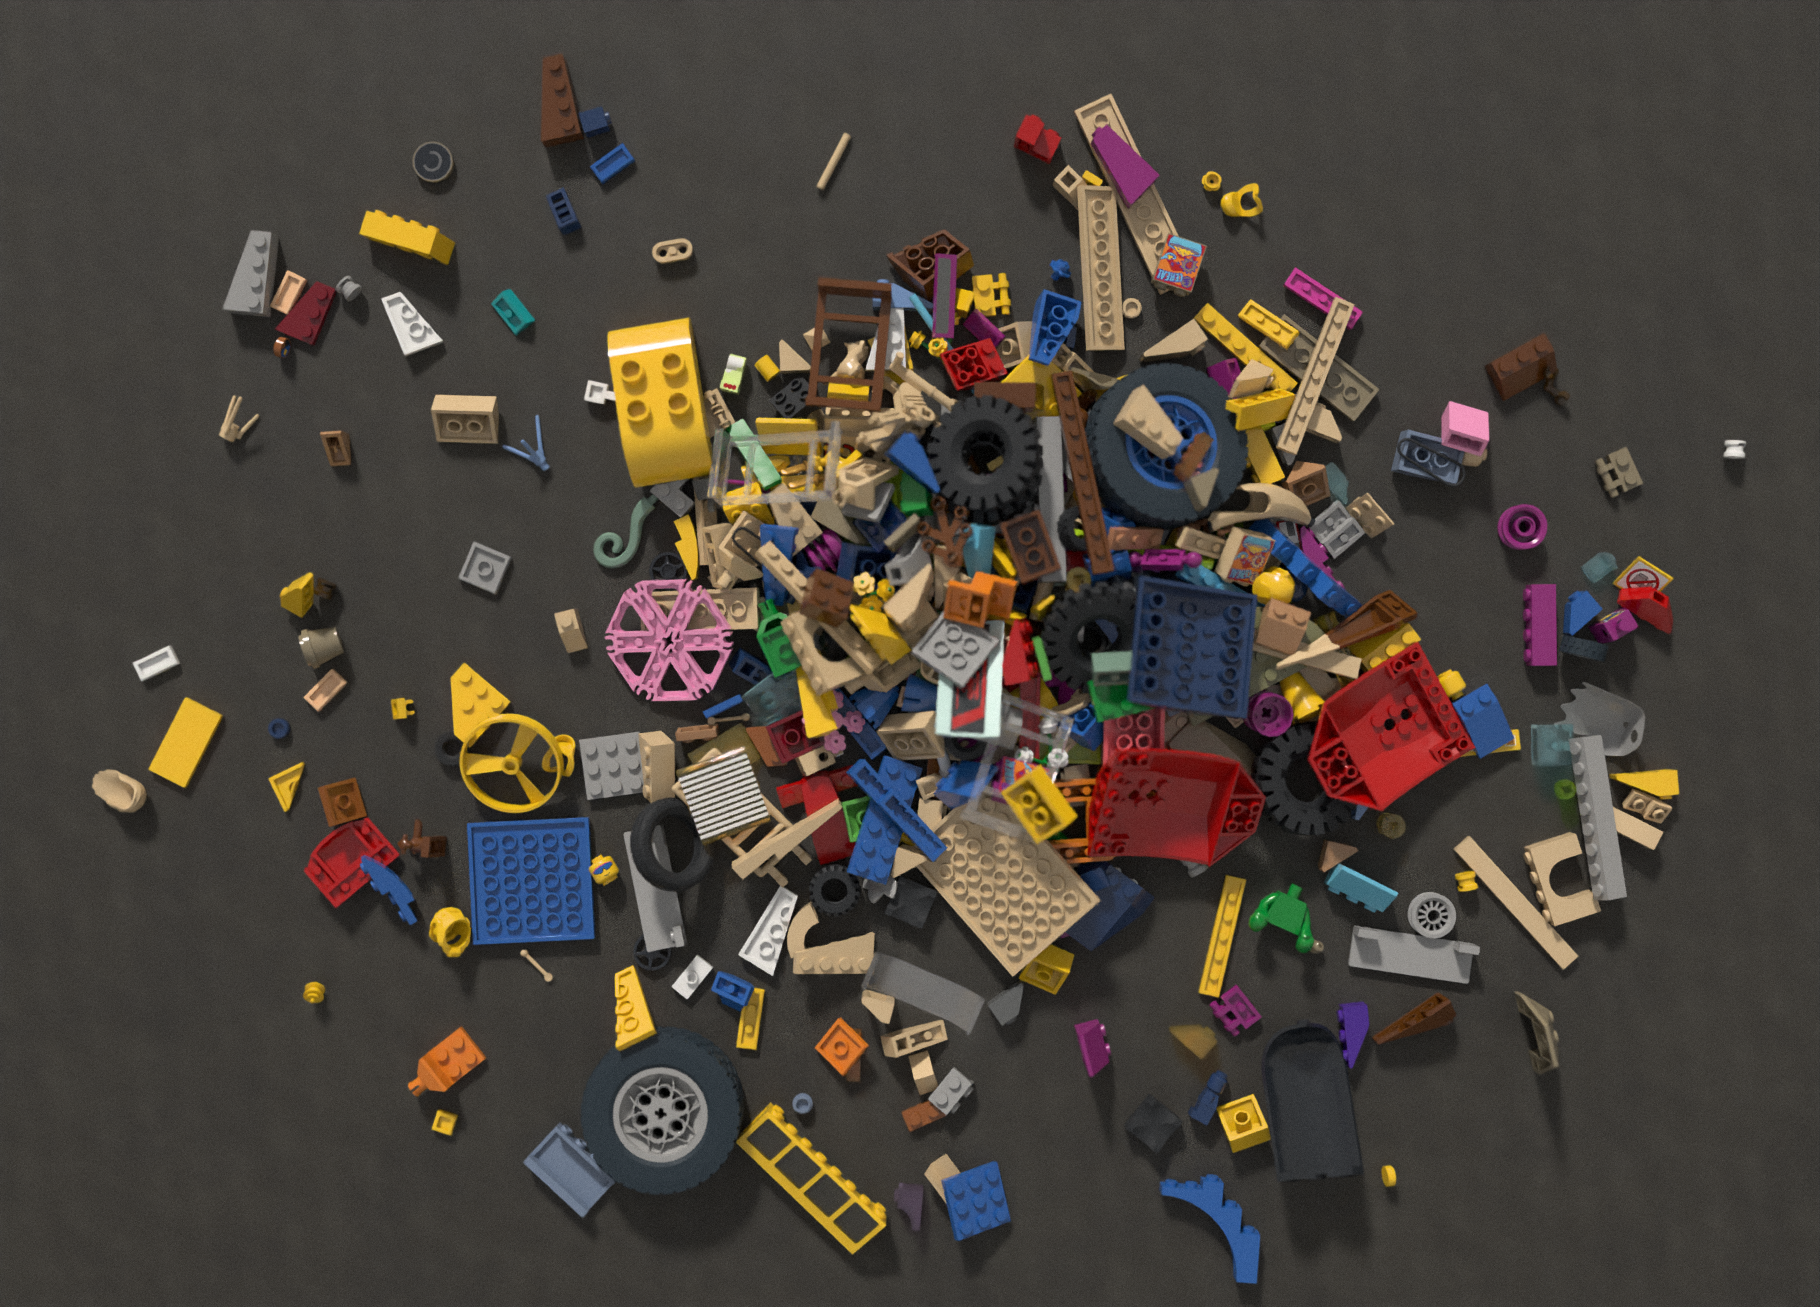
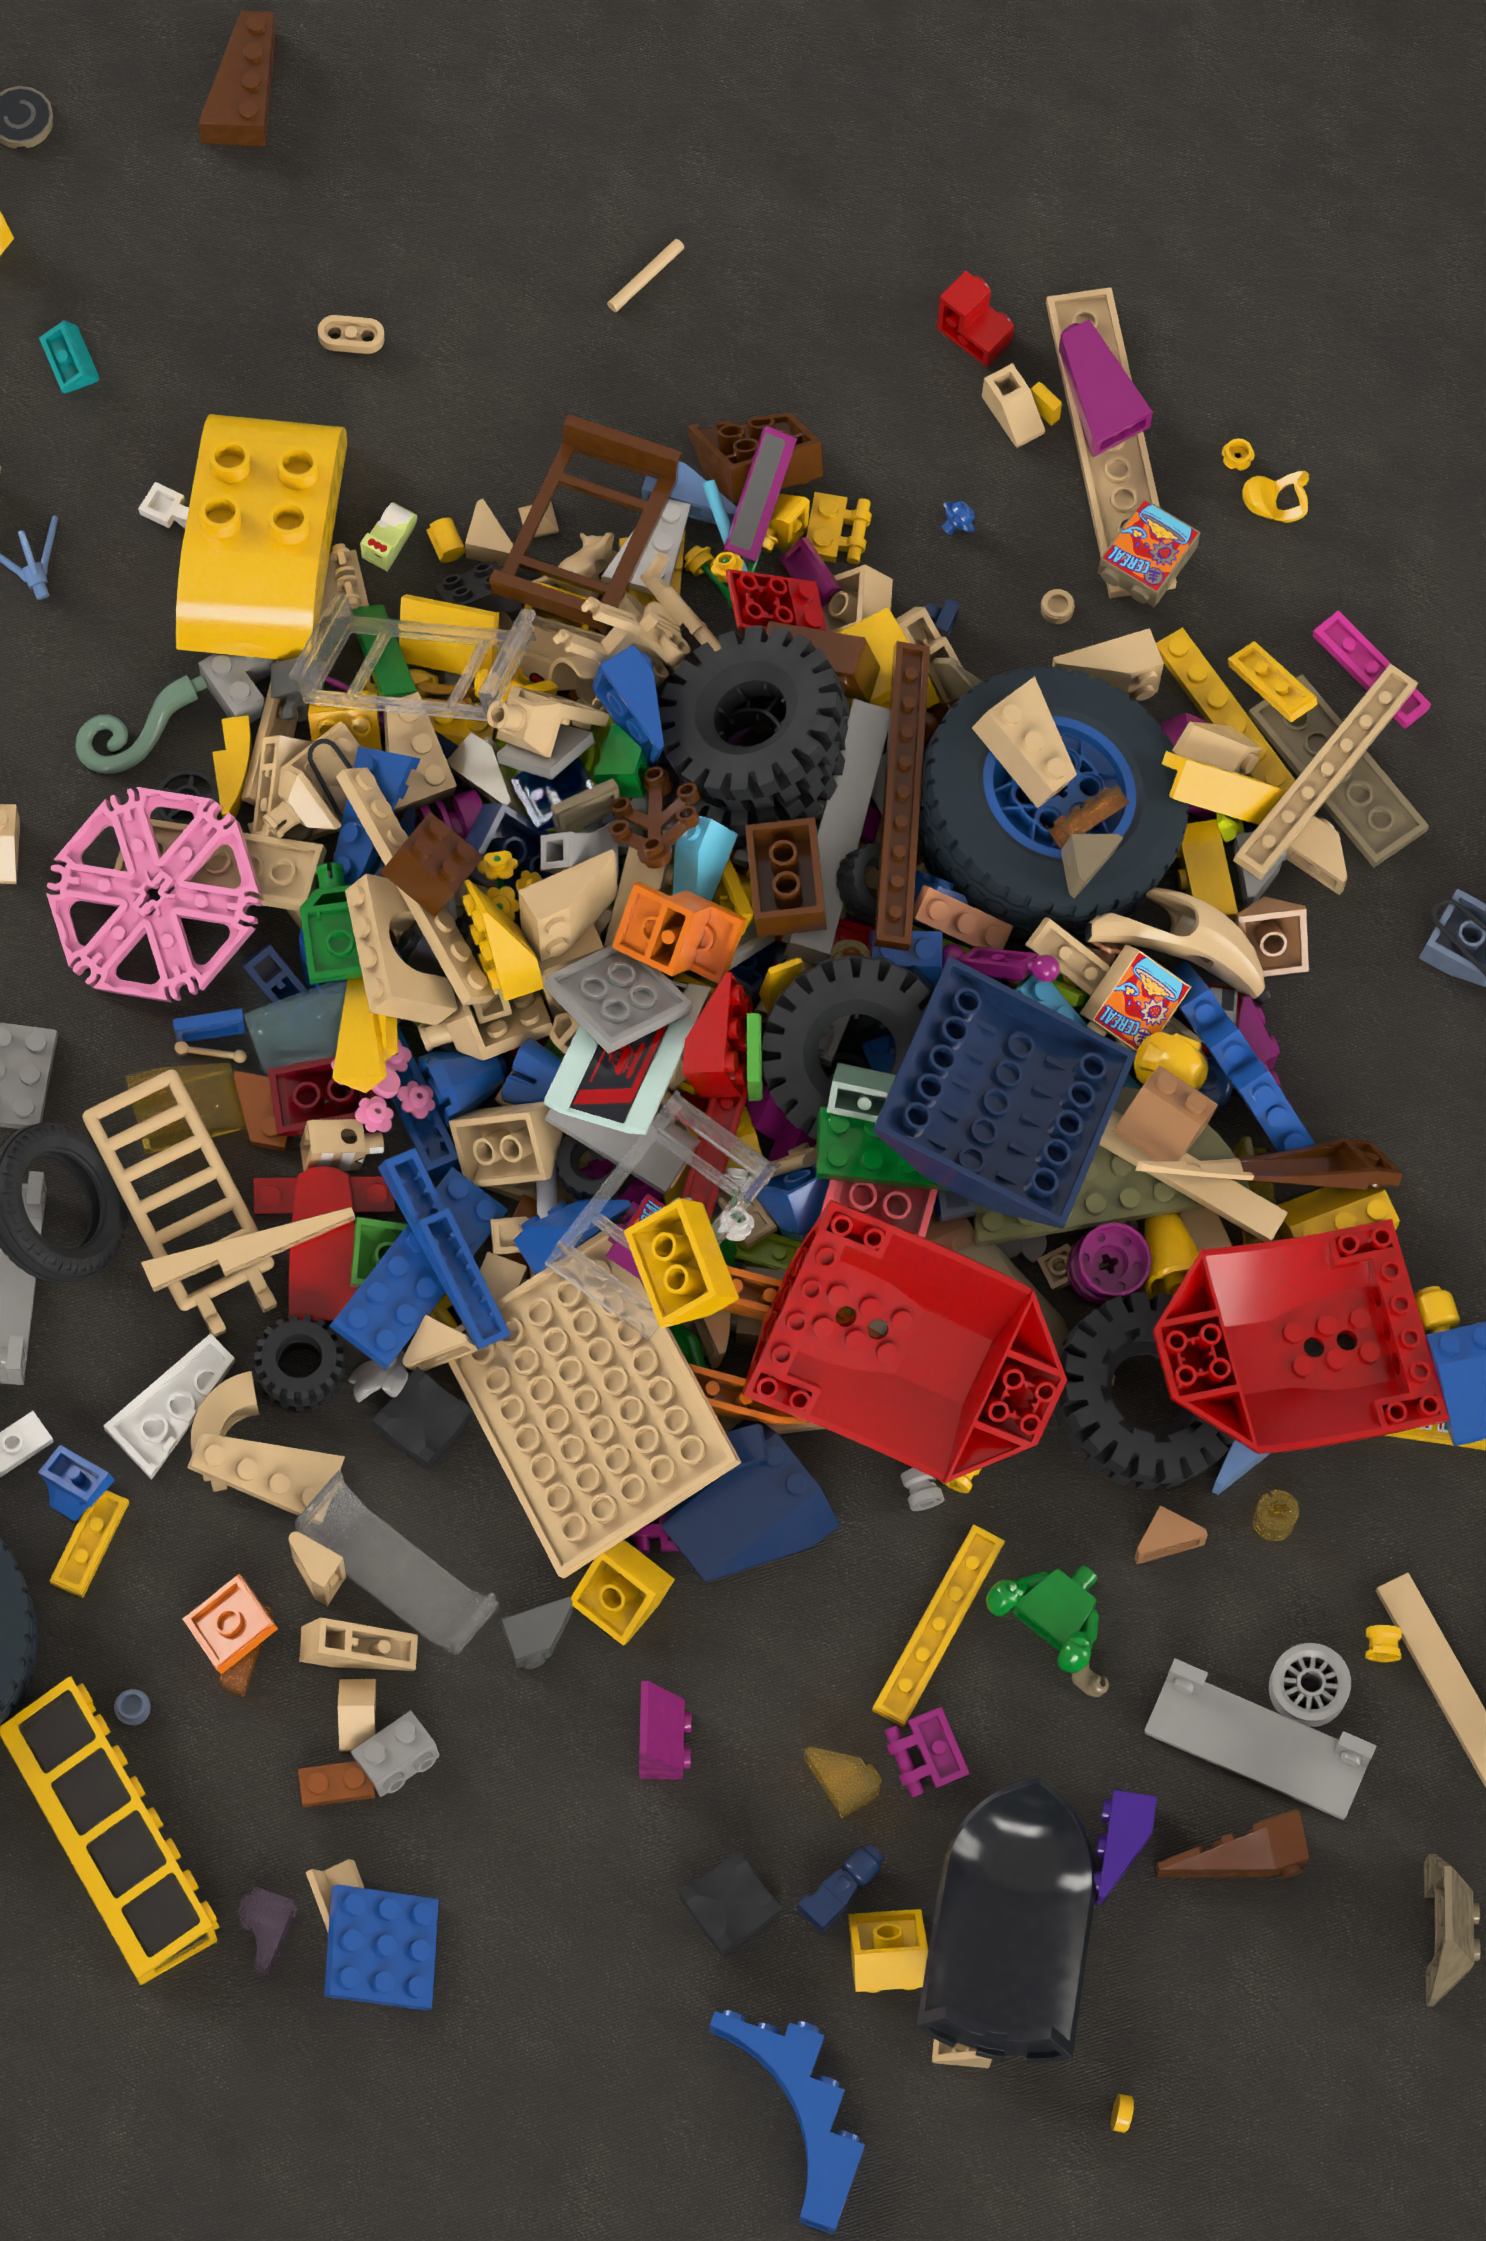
camera: 15 degrees right, 20 degrees down
(568, 223) = (199, 256): dark blue slope -> none
(595, 121) = (291, 123): dark blue brick -> none
(612, 163) = (298, 190): blue tile -> none
(658, 765) = (70, 1080): tan wedge -> none
(703, 732) = (136, 1054): medium nougat plate -> none
(723, 795) = (164, 1149): piece -> none
(1051, 324) = (920, 583): blue wedge -> none
(1100, 268) = (1023, 529): tan plate -> none
(1336, 529) = (1304, 1024): light grey slope -> none
(1337, 482) = (1323, 951): clear light blue slope -> none
(1359, 888) = (1195, 1598): medium azure slope -> none
(1369, 515) = (1363, 1010): tan hinge -> none

